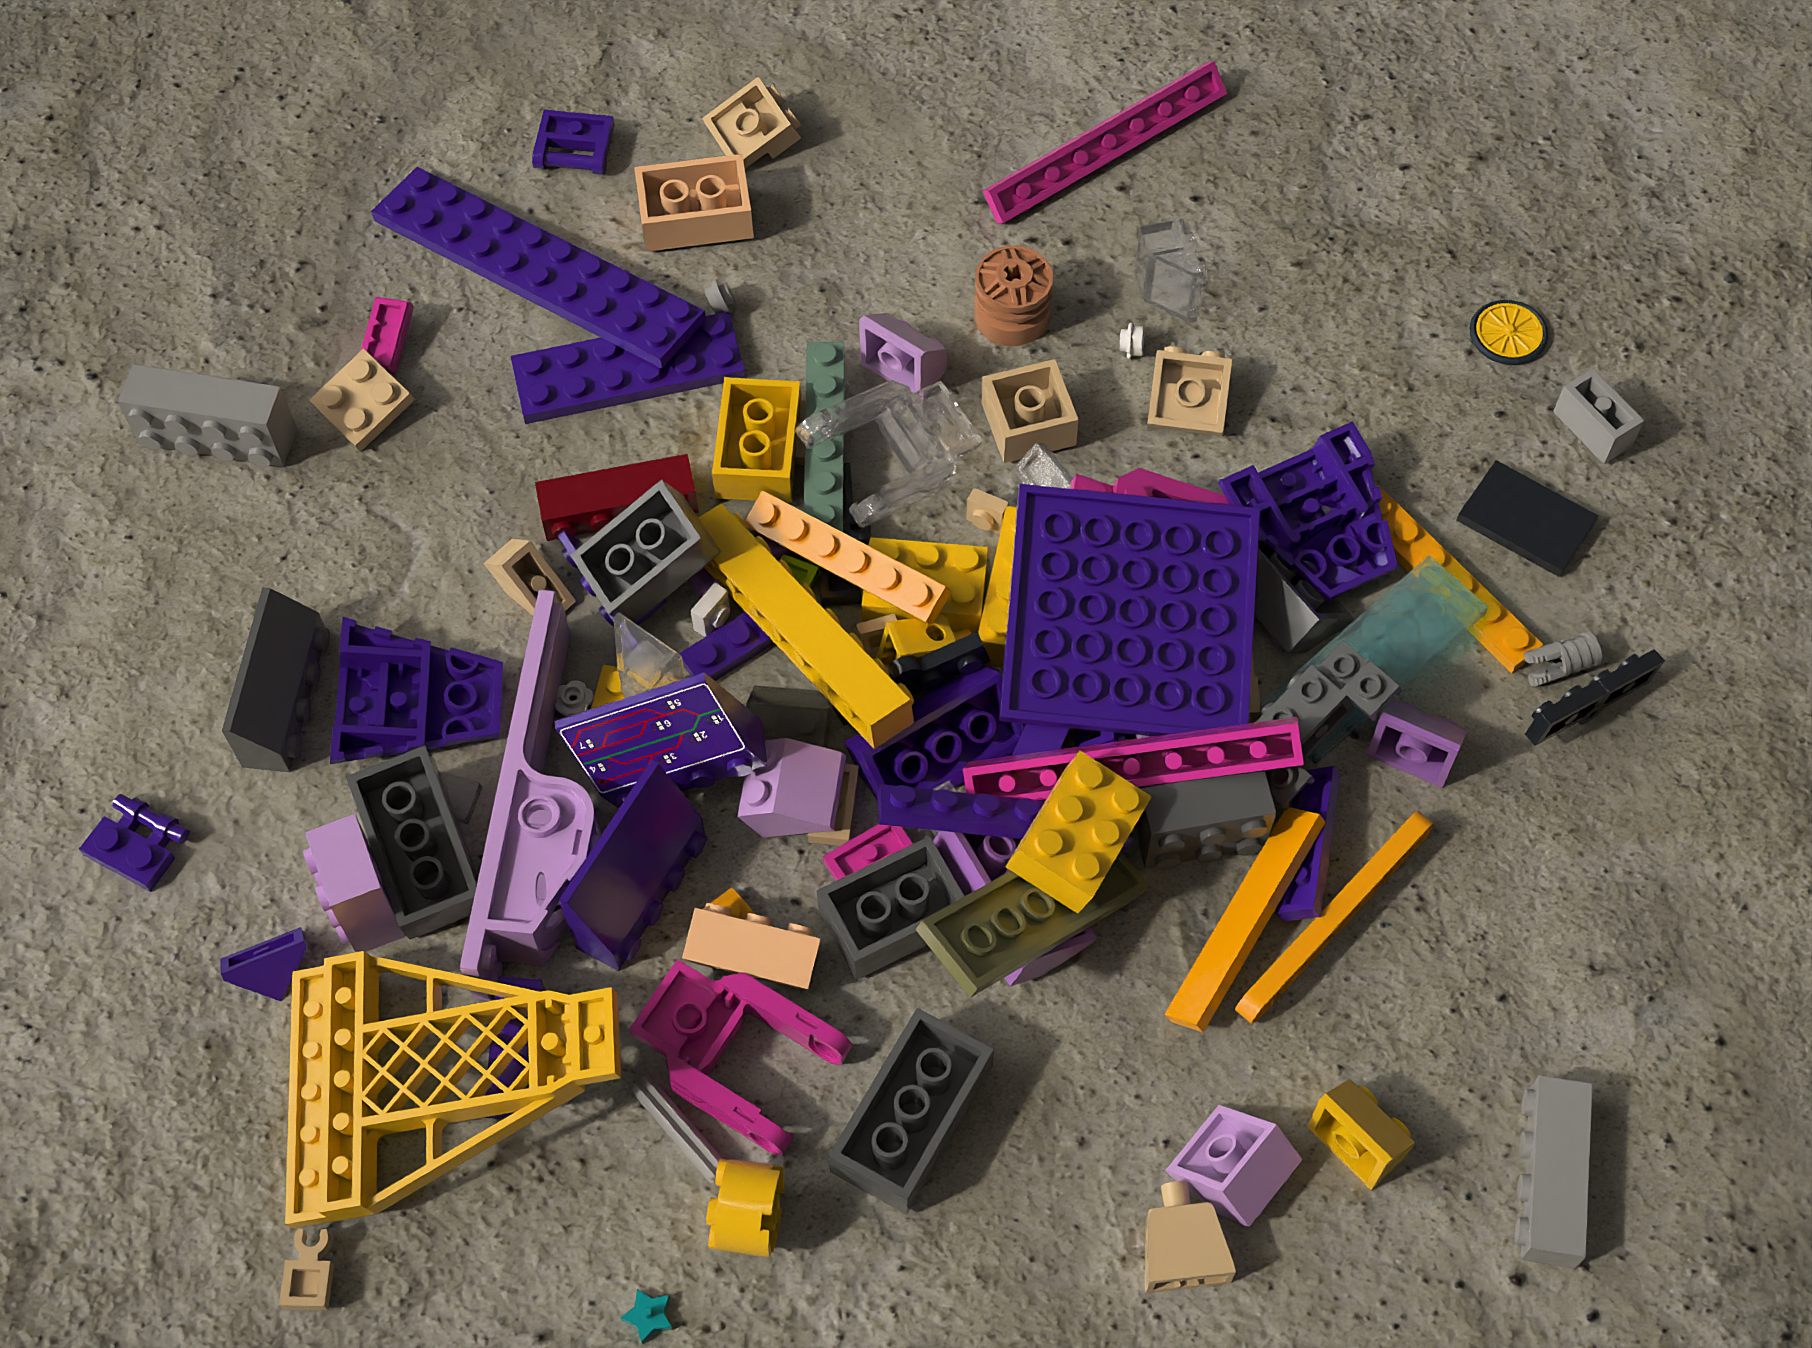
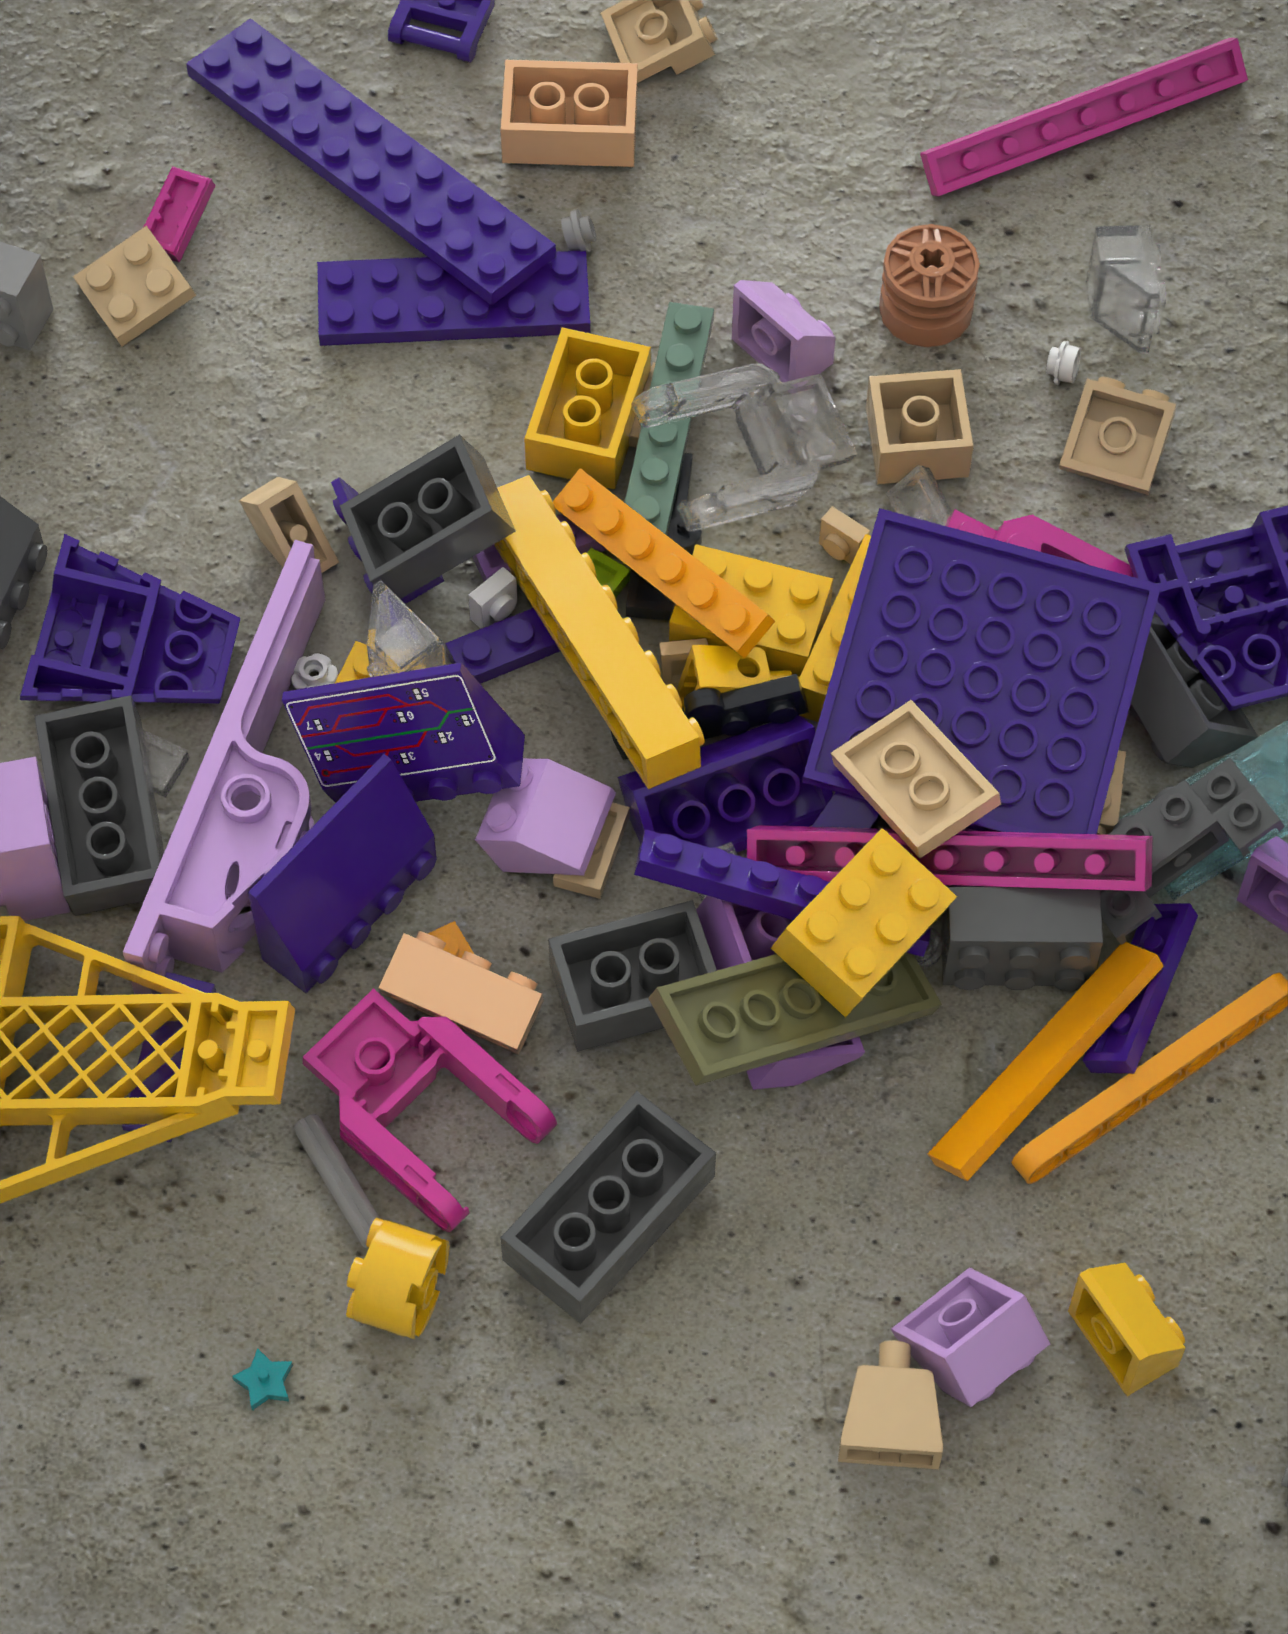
camera: 10 degrees right, 0 degrees up
(594, 498) = (374, 446): dark red brick -> none
(792, 714) = (564, 735): clear smoke slope -> none
(865, 849) = (617, 903): dark pink plate -> none
(1096, 703) = (916, 778): none -> tan plate

